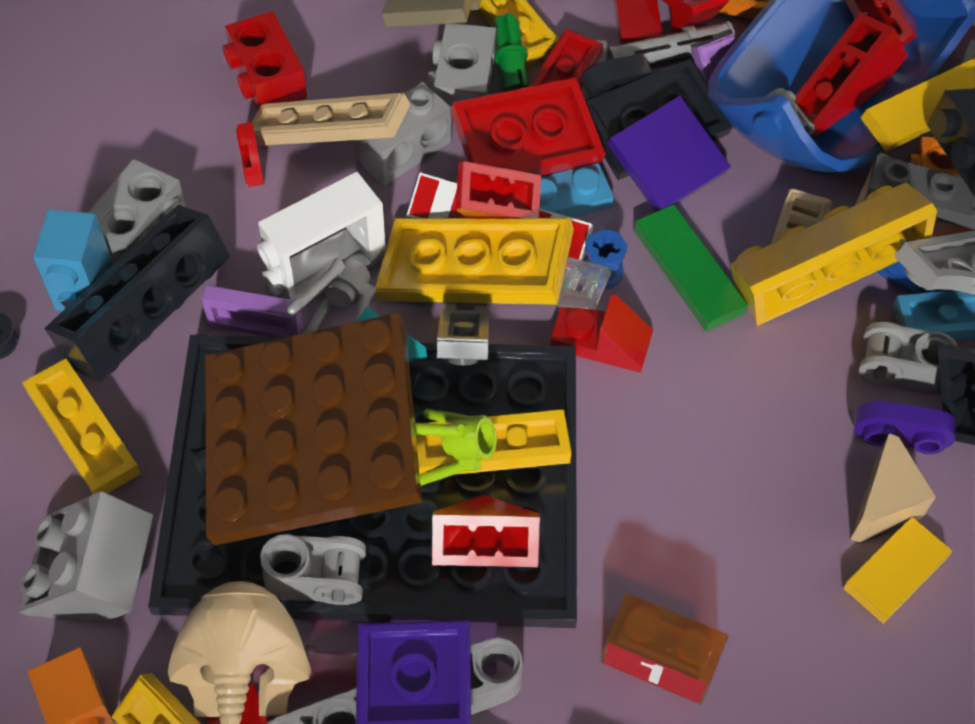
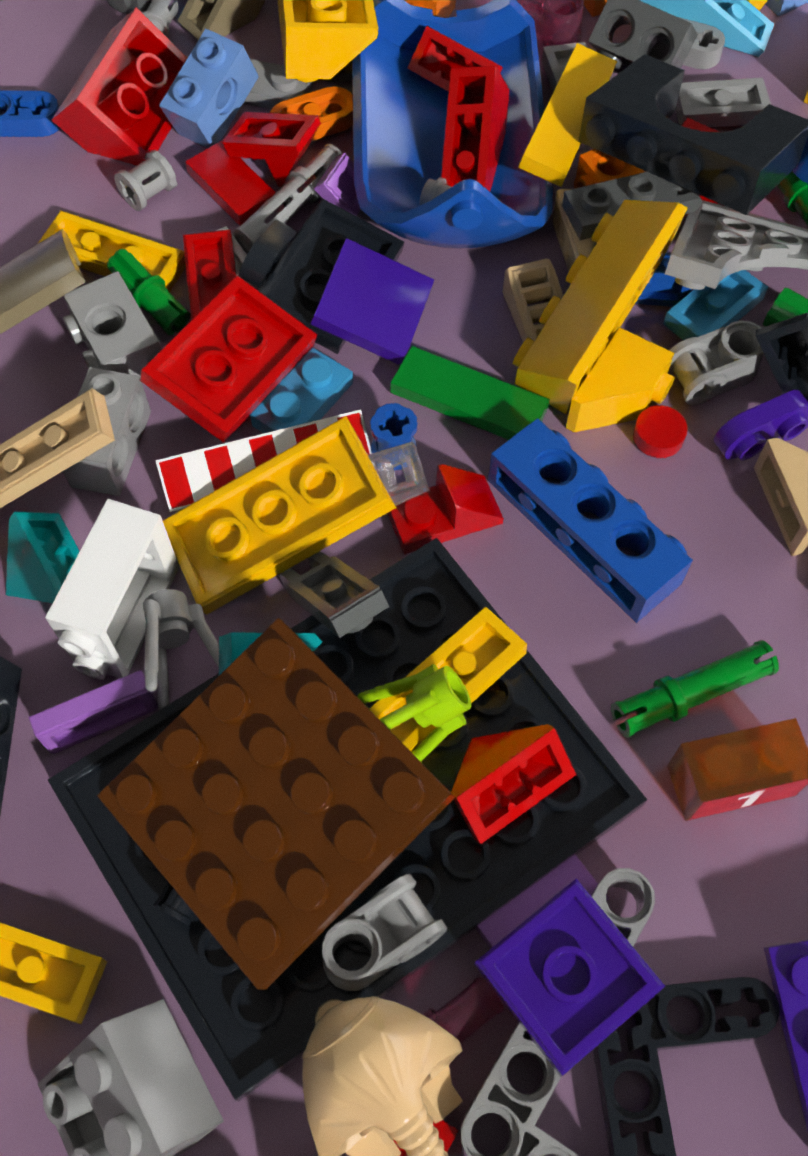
camera: 35 degrees left, 5 degrees up
(297, 181) = (38, 555): none -> teal slope
(496, 192) = (257, 433): red slope -> none
(682, 574) = (674, 696): none -> green pin
(703, 474) = (591, 544): none -> blue brick
(812, 326) = (621, 383): none -> yellow slope
(818, 382) = (660, 431): none -> red tile

